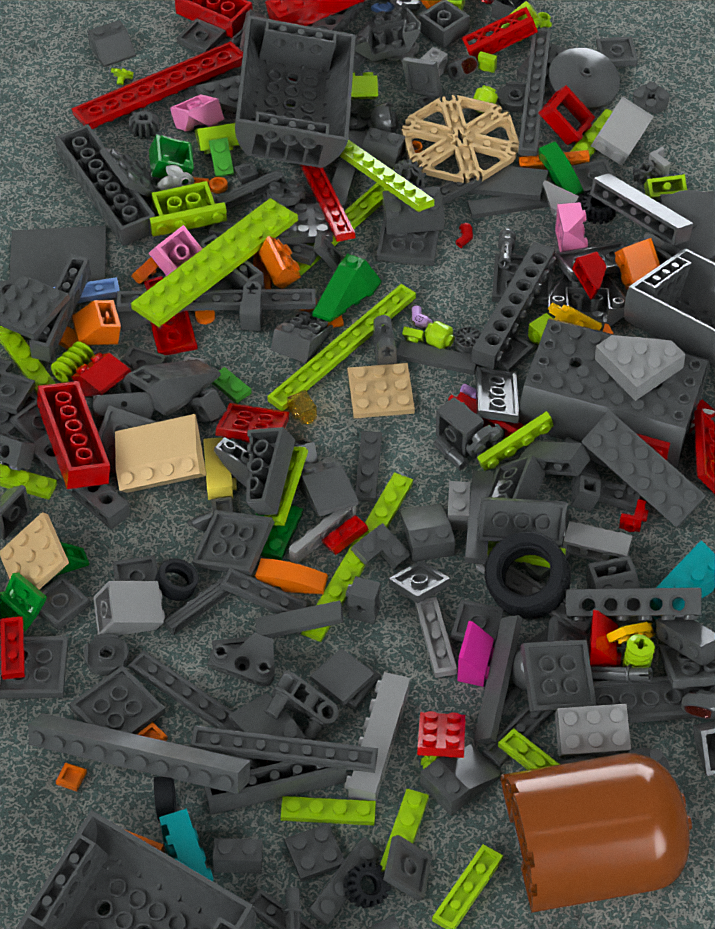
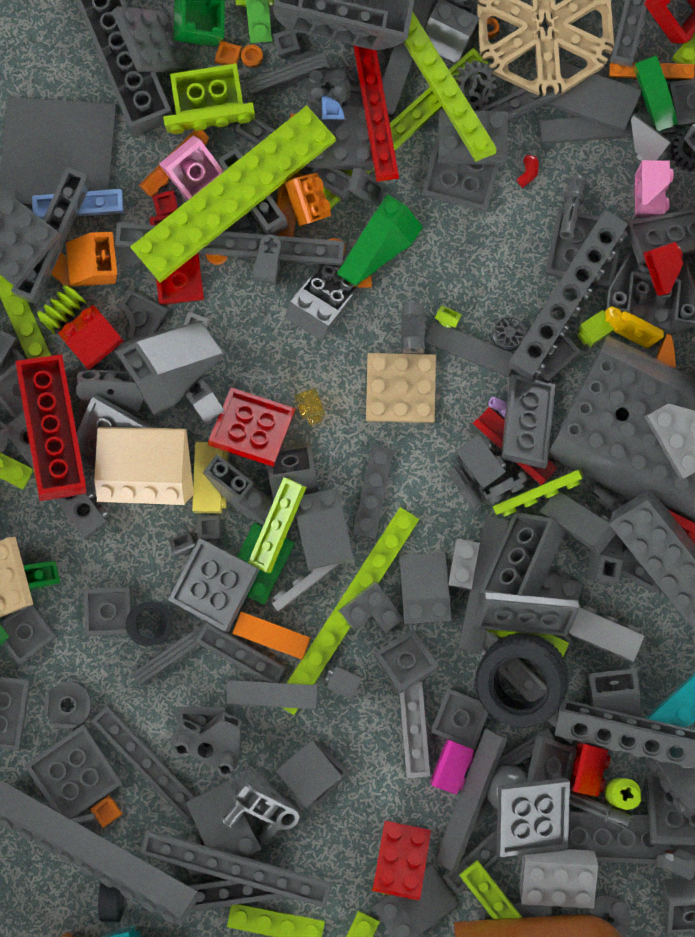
camera: 10 degrees right, 30 degrees up
(71, 776) = (20, 848): orange tile -> none
(128, 607) = (95, 658): light grey slope -> none
(174, 178) = (200, 53): light grey plate -> none
(232, 386) = (236, 359): bright green plate -> none
(268, 467) = (258, 510): dark grey wedge -> none
(291, 200) = (331, 108): none -> medium blue tile
(340, 347) = (366, 321): lime plate -> none
(345, 534) = (335, 586): red plate -> none
(380, 734) = (340, 841): light grey brick -> none
(418, 318) = (457, 292): lavender arm -> none
(439, 335) = (476, 322): lime head -> none
(623, 633) = (616, 766): yellow hinge -> none
(633, 522) = (658, 602): red bracket -> none

